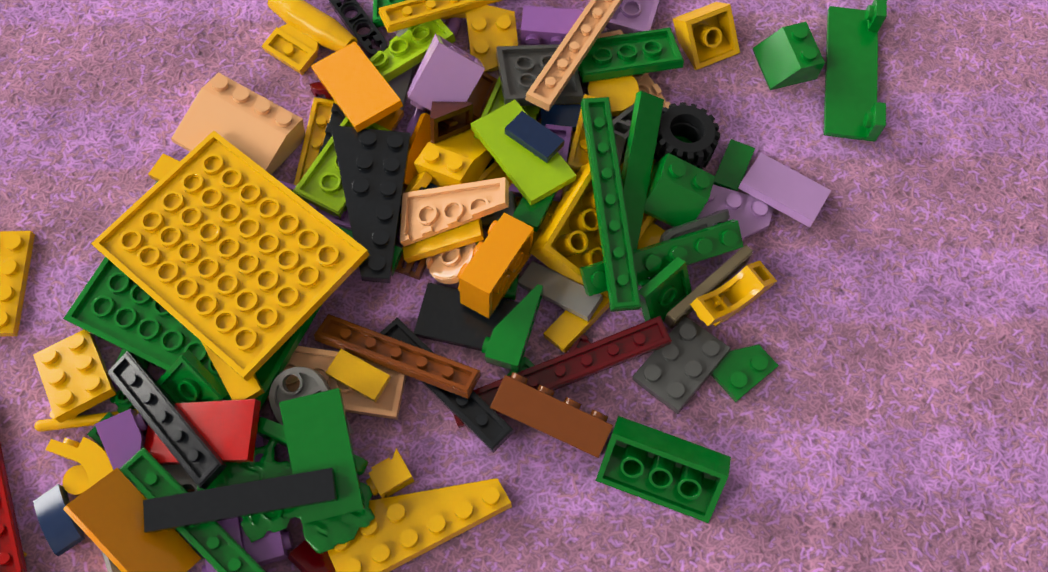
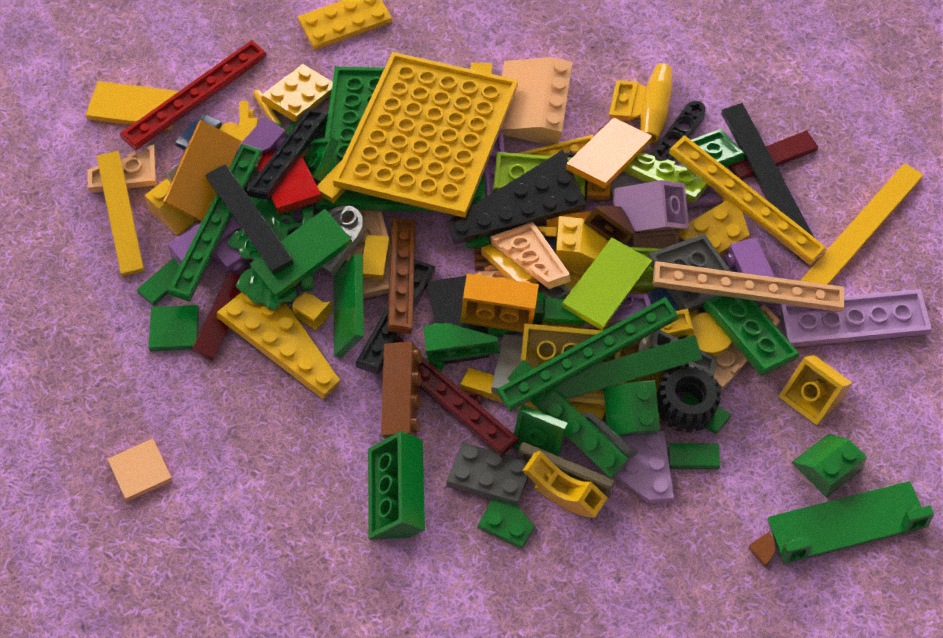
camera: 70 degrees right, 10 degrees down
(411, 429) = (348, 306): none -> green tile
(534, 136) = (620, 283): dark blue tile -> none
(784, 189) = (689, 500): lavender tile -> none
(854, 150) = (763, 549): none -> dark orange tile

